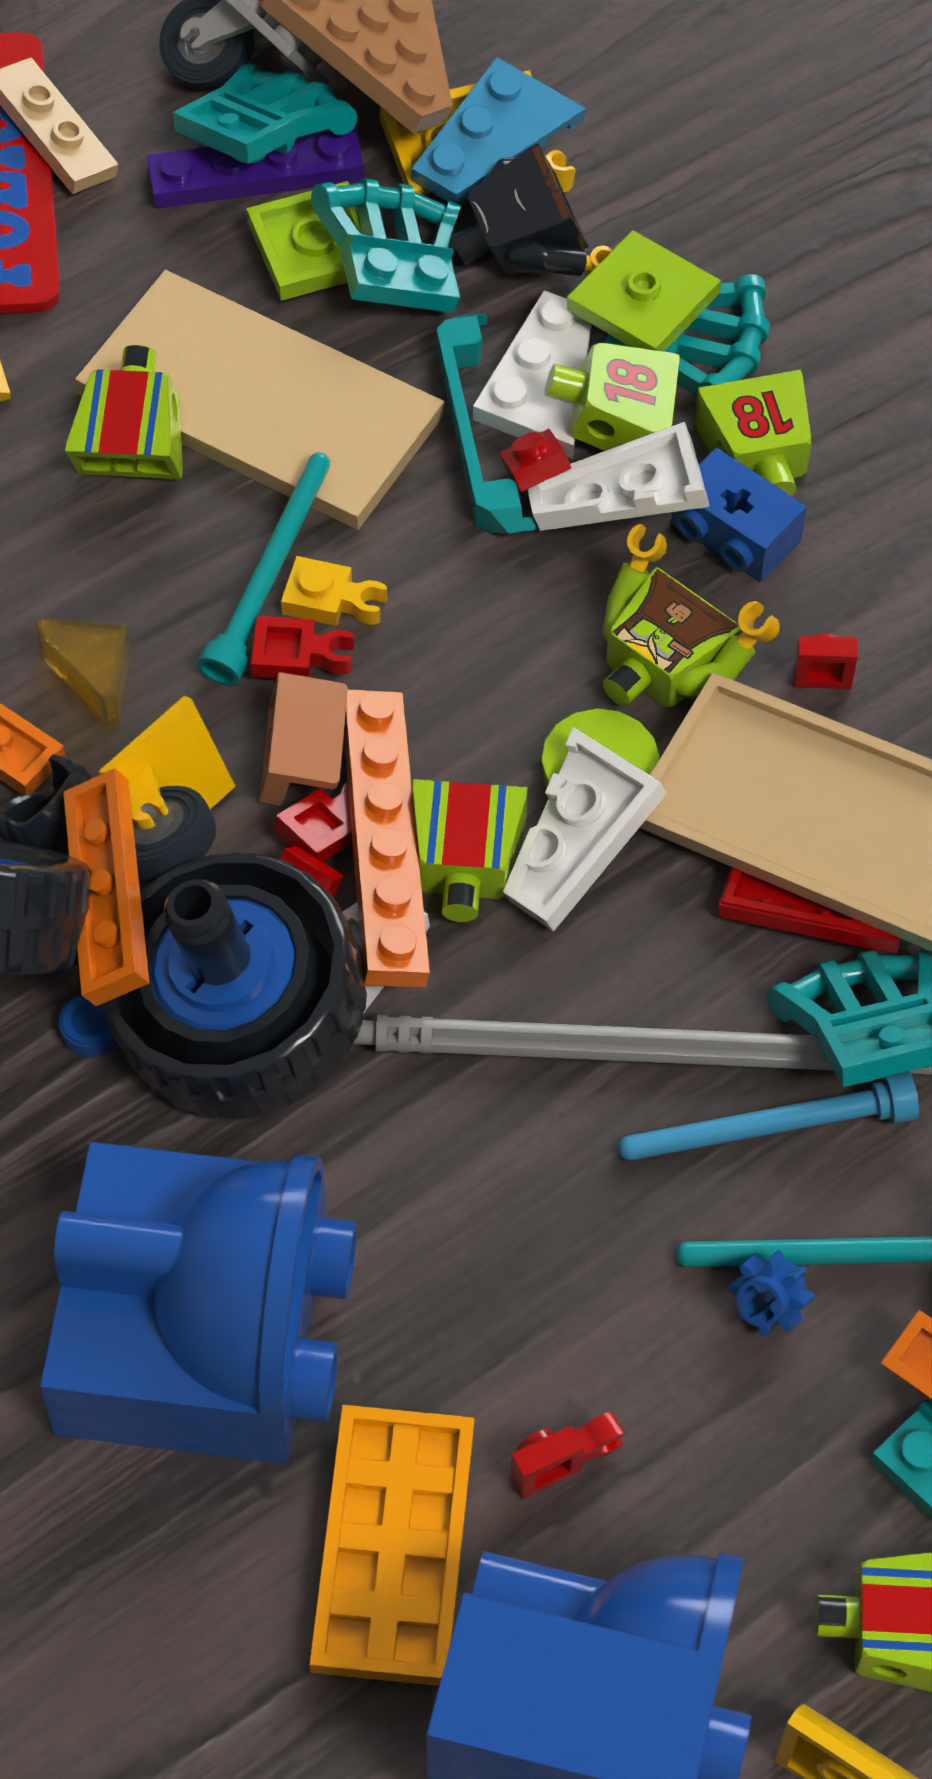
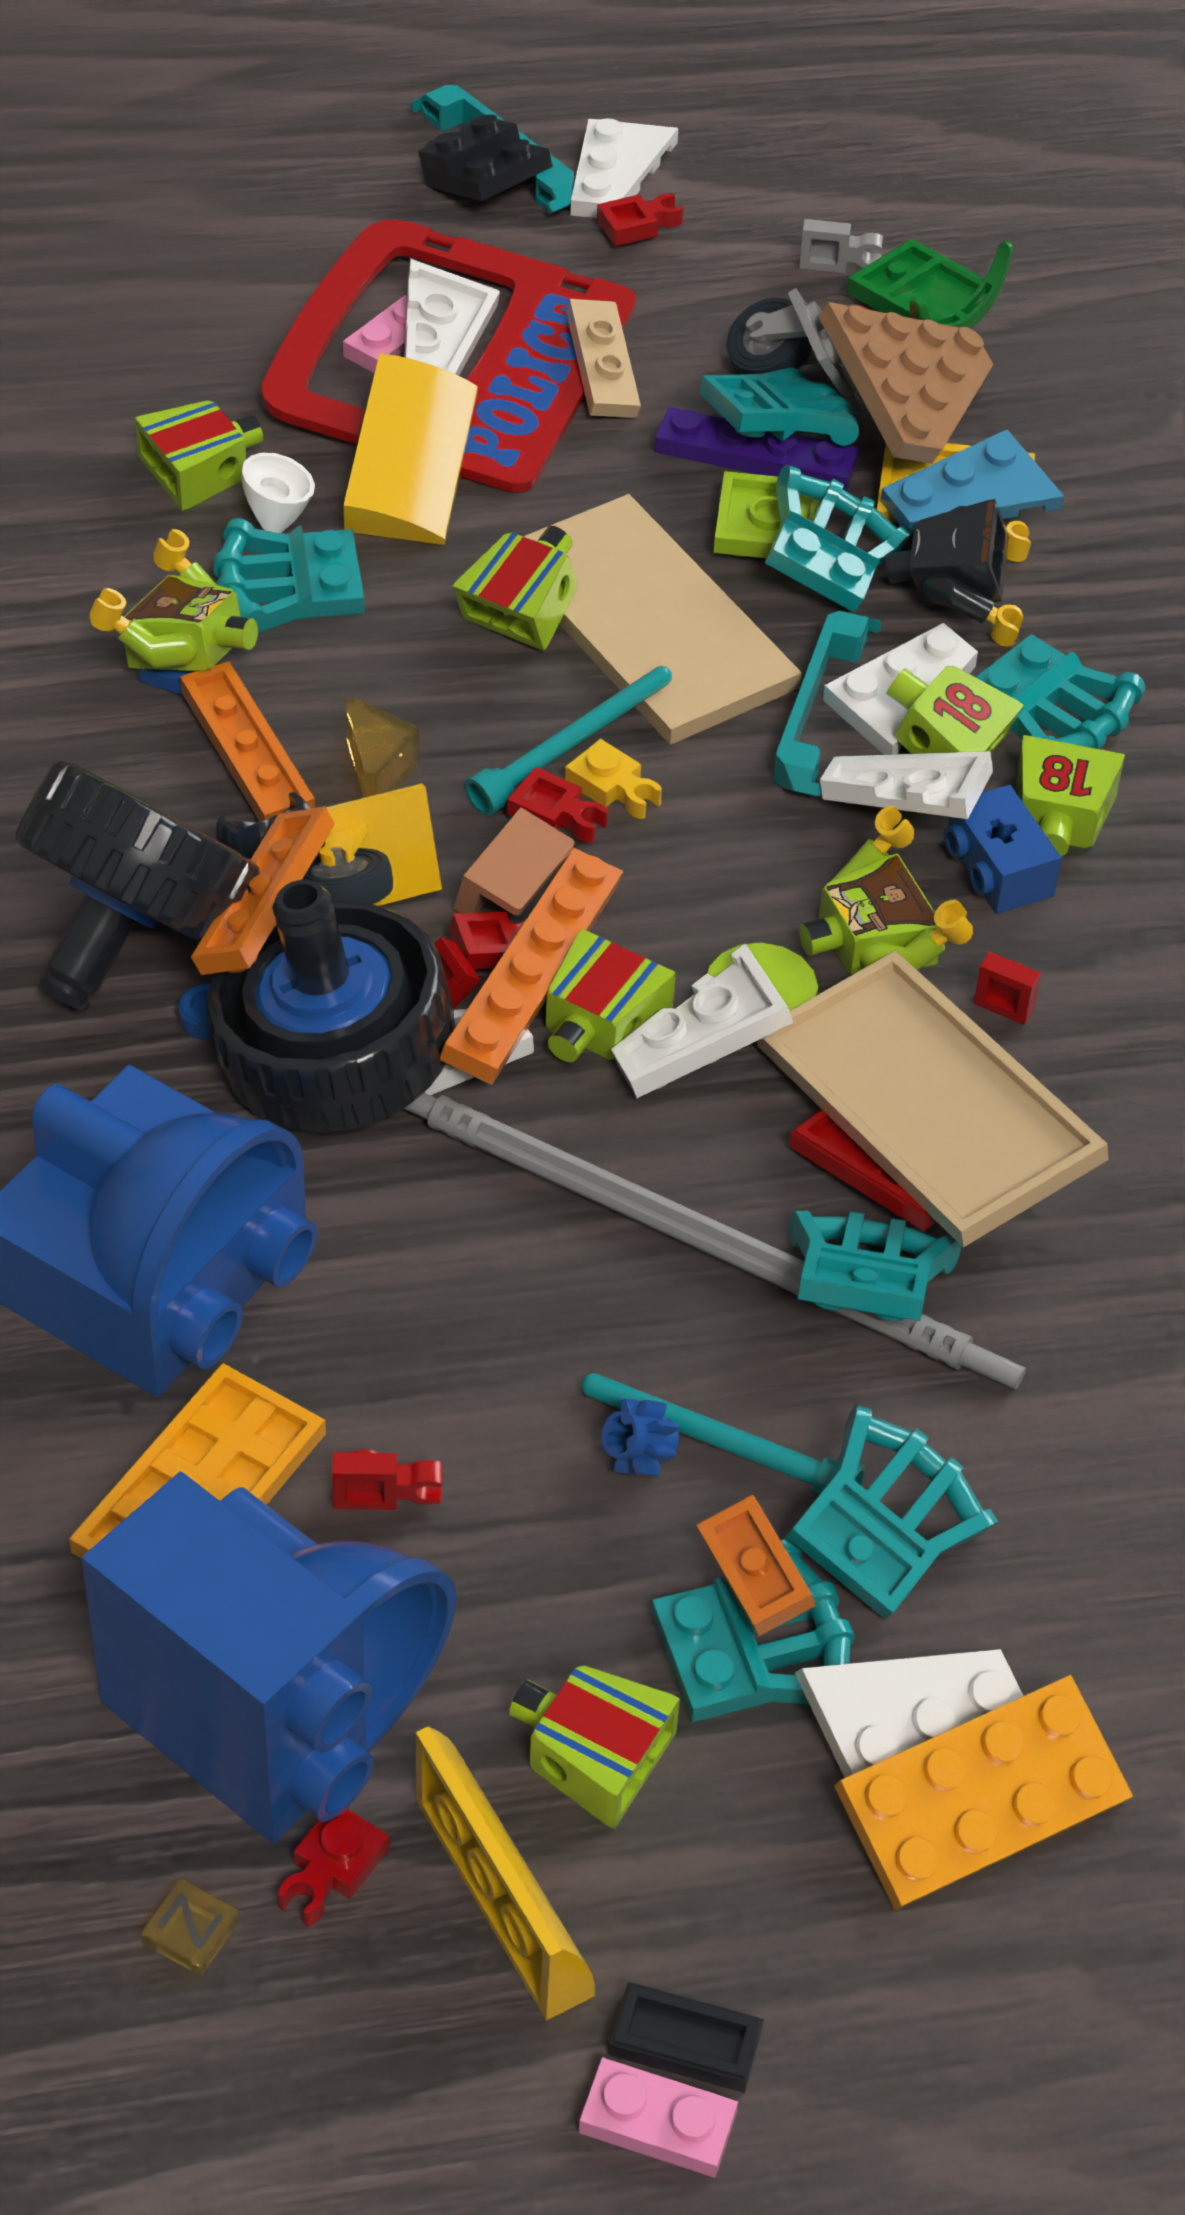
camera: 25 degrees right, 10 degrees down
(534, 459) = (849, 740): red plate -> none
(643, 294) = (1024, 650): lime plate -> none
(891, 1098) = (845, 1340): dark azure piece -> none

